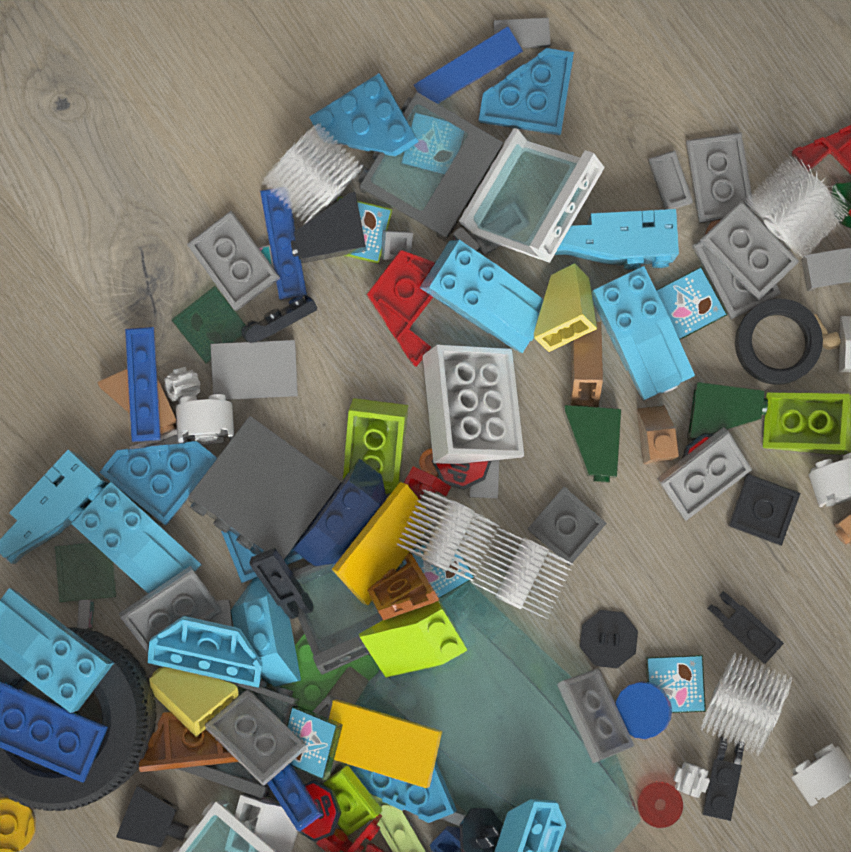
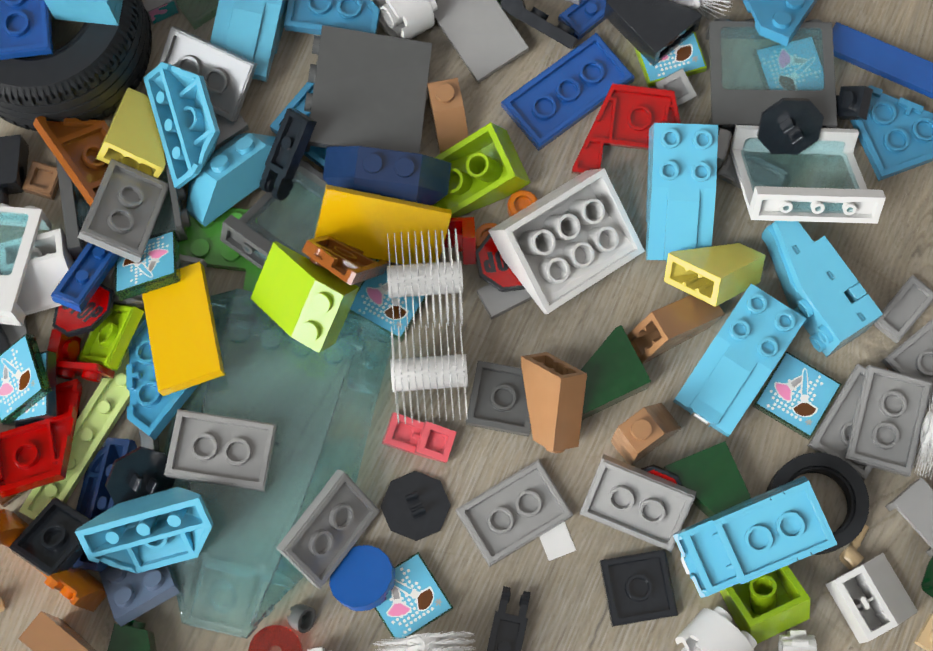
camera: 60 degrees right, 10 degrees down
(179, 787) = (42, 180): none -> medium nougat tile
(315, 436) = (447, 112): none -> medium nougat slope
(346, 330) = (566, 91): none -> blue tile
(419, 421) = (519, 201): none -> orange tile
(485, 180) = (790, 126): none -> black piece
(492, 118) = (853, 102): none -> black plate
(496, 764) = (221, 450): none -> light grey tile
(567, 603) = (419, 438): none -> coral slope
(593, 490) = (554, 400): none -> medium nougat slope
(646, 771) = (301, 618): none -> dark grey hinge
(656, 568) = (514, 513): none -> light grey tile
(692, 548) = (557, 542): none -> white sticker
(784, 406) = (754, 537): none -> medium azure piece

